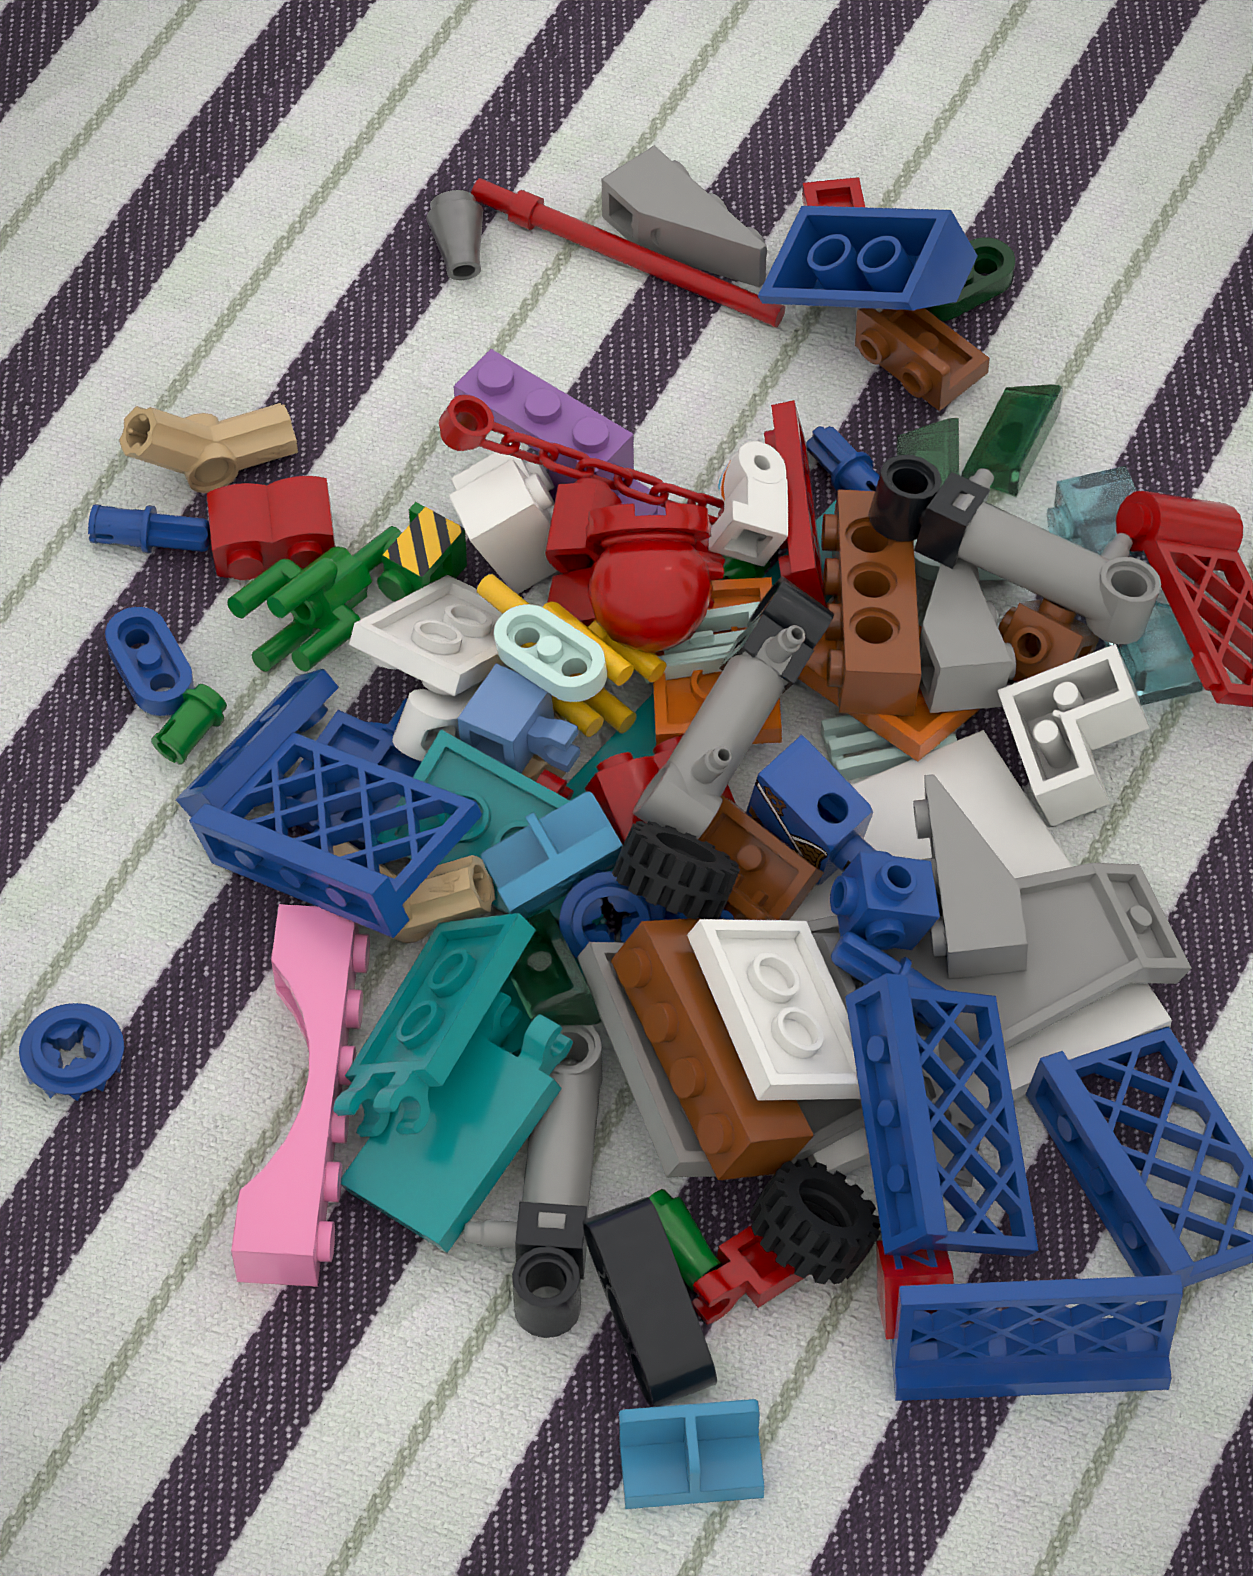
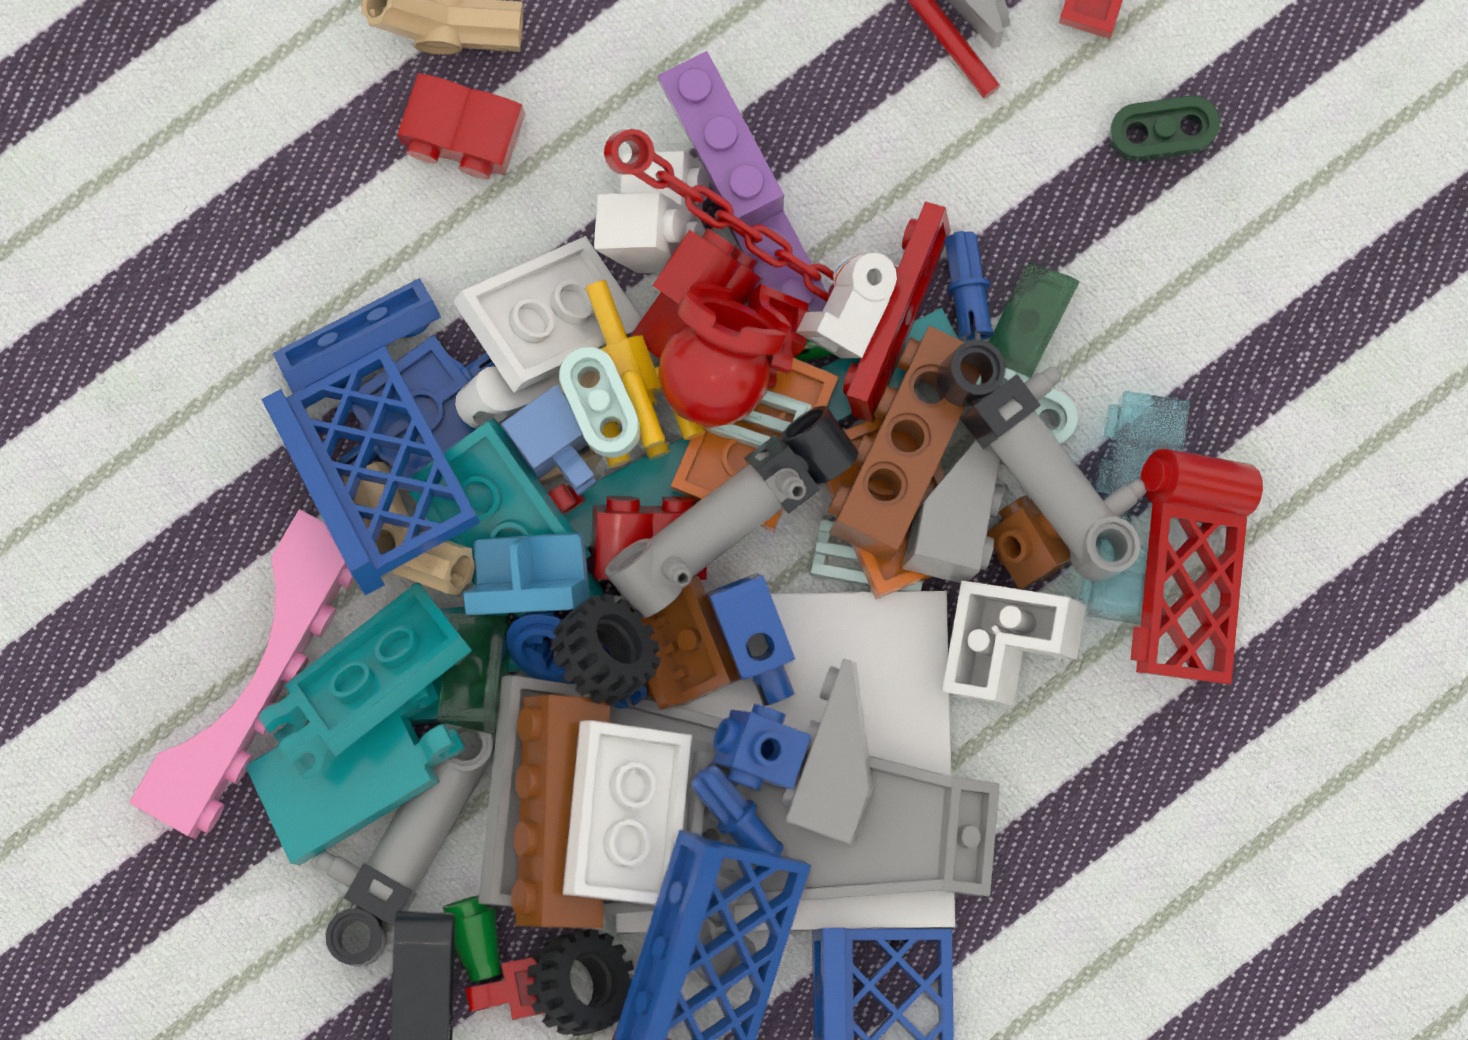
camera: 25 degrees right, 25 degrees up
(62, 1029) = (95, 525): blue gear -> none
(147, 529) = (361, 76): blue axle -> none
(153, 665) = (306, 213): blue plate -> none
(189, 723) = (313, 287): green pin -> none
(316, 597) = (466, 215): green plant -> none
(422, 553) = (564, 213): brick -> none
(870, 259) = (1072, 103): blue slope -> none
(920, 353) = (1088, 189): dark orange bracket -> none
(1015, 435) = (1124, 309): clear green slope -> none

